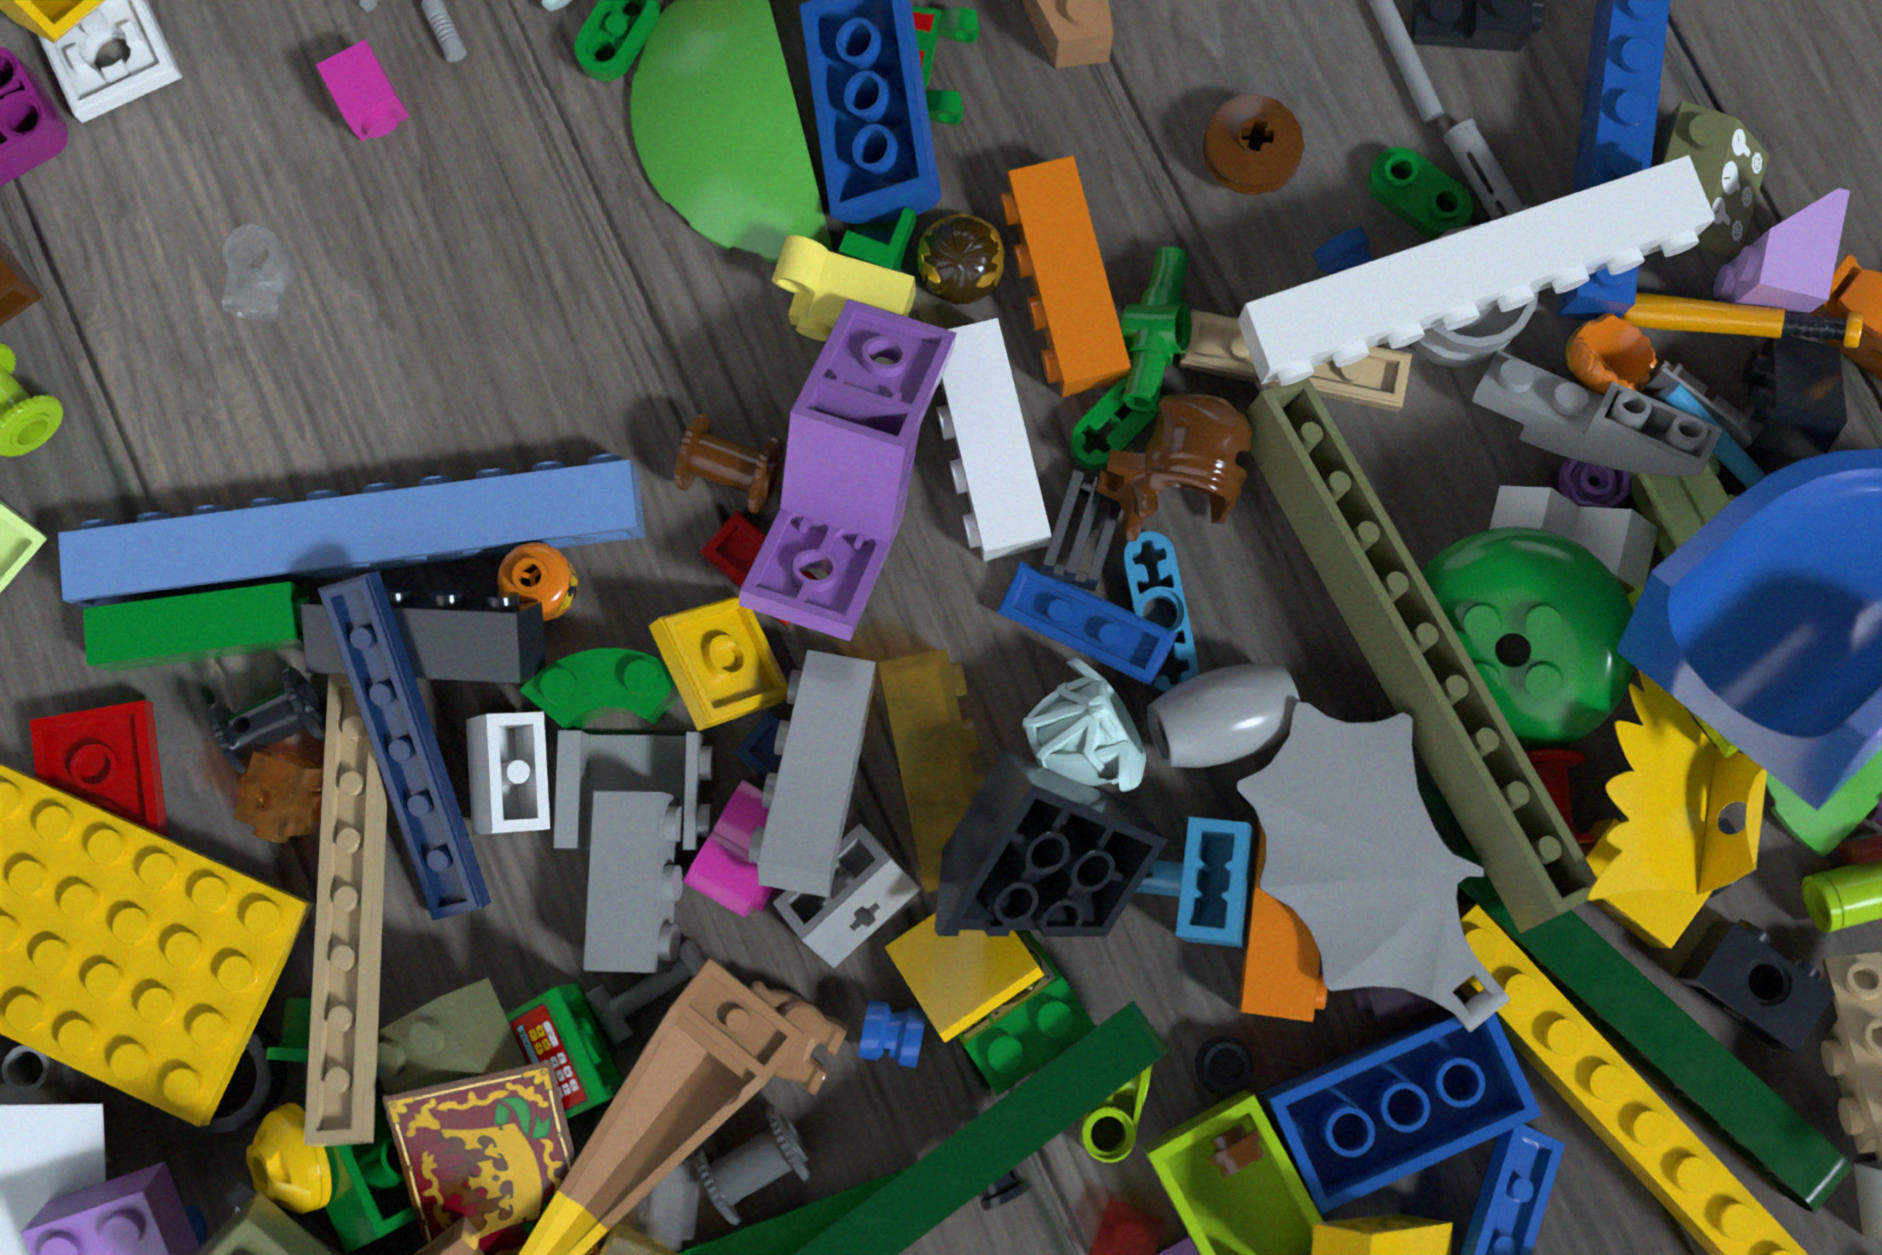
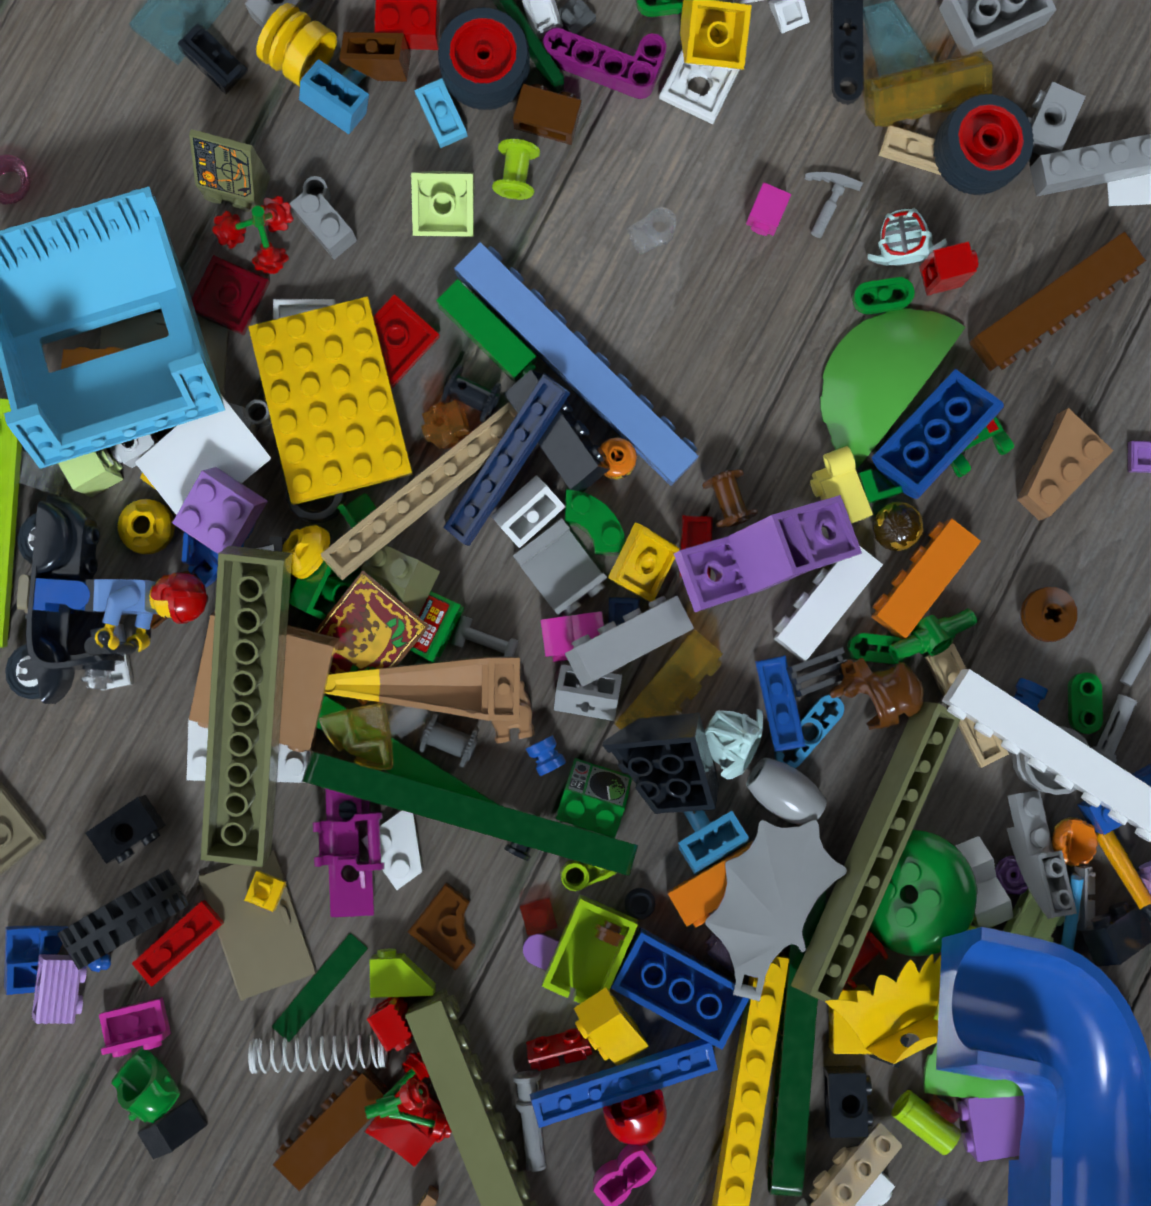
camera: 45 degrees right, 5 degrees up
(633, 882) = (525, 599): light grey brick -> none
(962, 974) = (592, 766): yellow tile -> none

